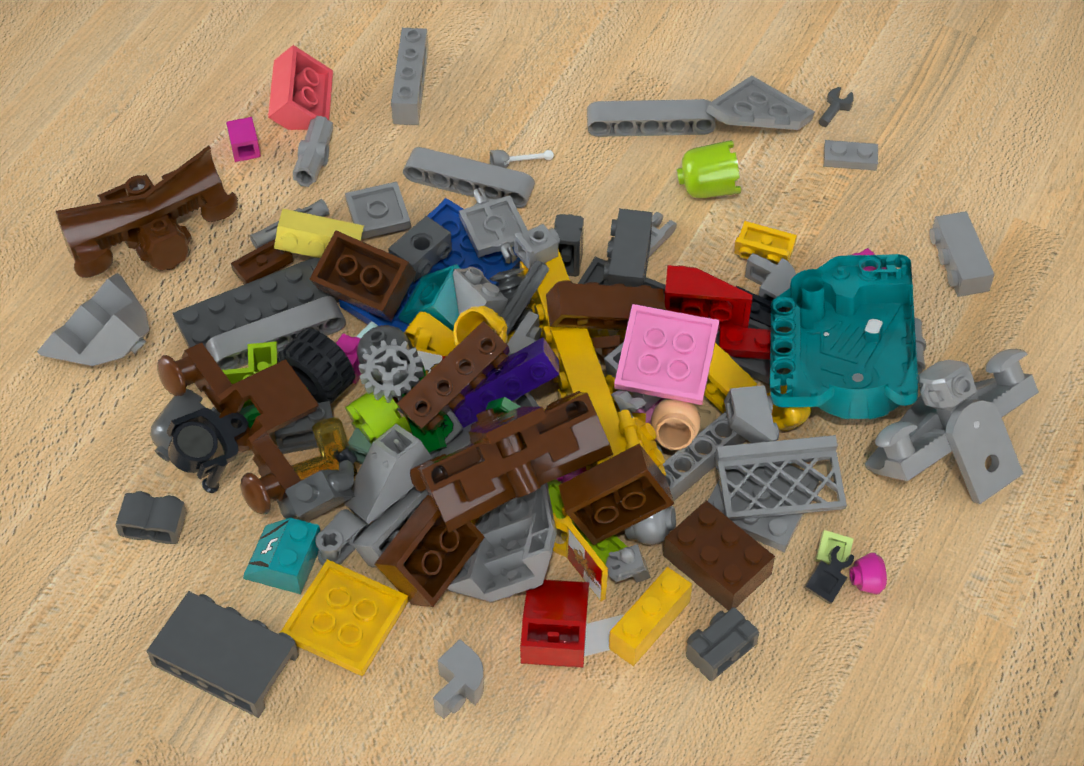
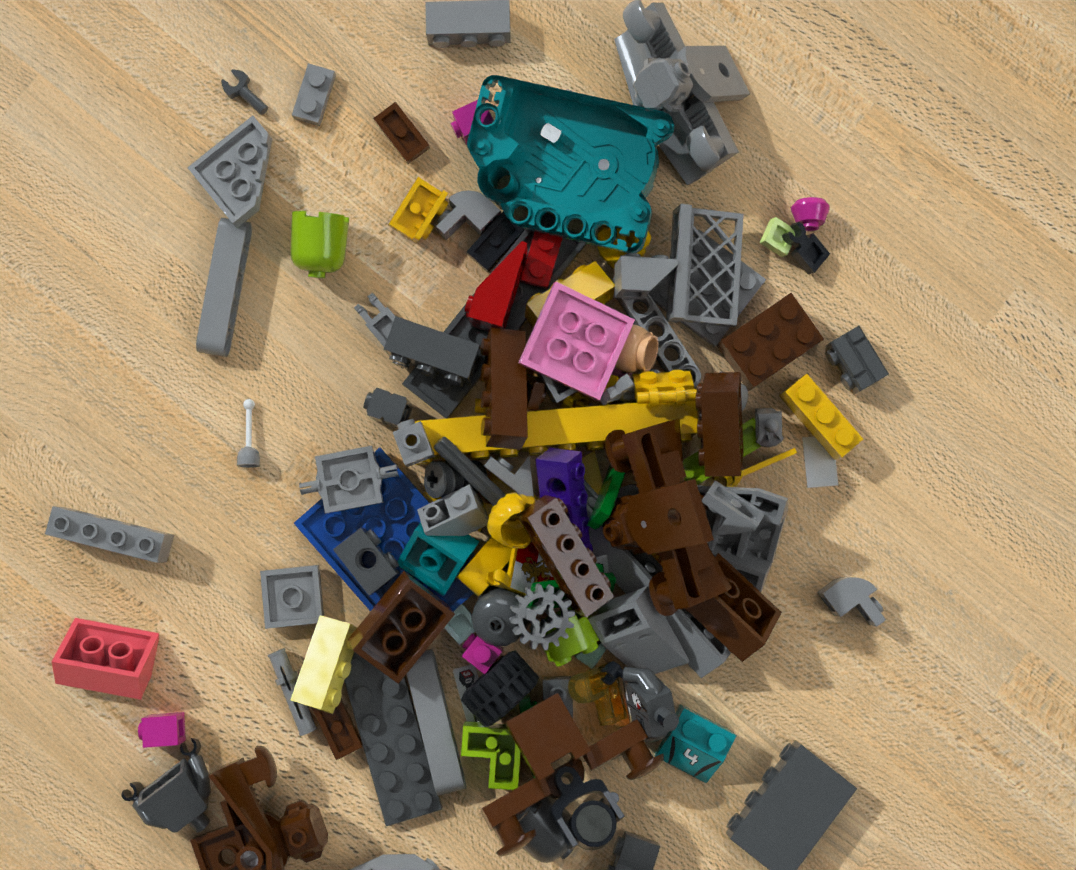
camera: 80 degrees left, 30 degrees up
(181, 144) = (176, 796): none -> dark grey torso
(313, 151) = (197, 655): light grey piece -> none
(337, 537) = (683, 683): light grey piece -> none
(345, 617) = (770, 696): yellow plate -> none
(466, 175) = (267, 494): light grey beam -> none
(531, 510) = (738, 513): none -> light grey slope
(555, 624) = (815, 501): red slope -> none
(836, 221) = (401, 133): none -> reddish brown plate

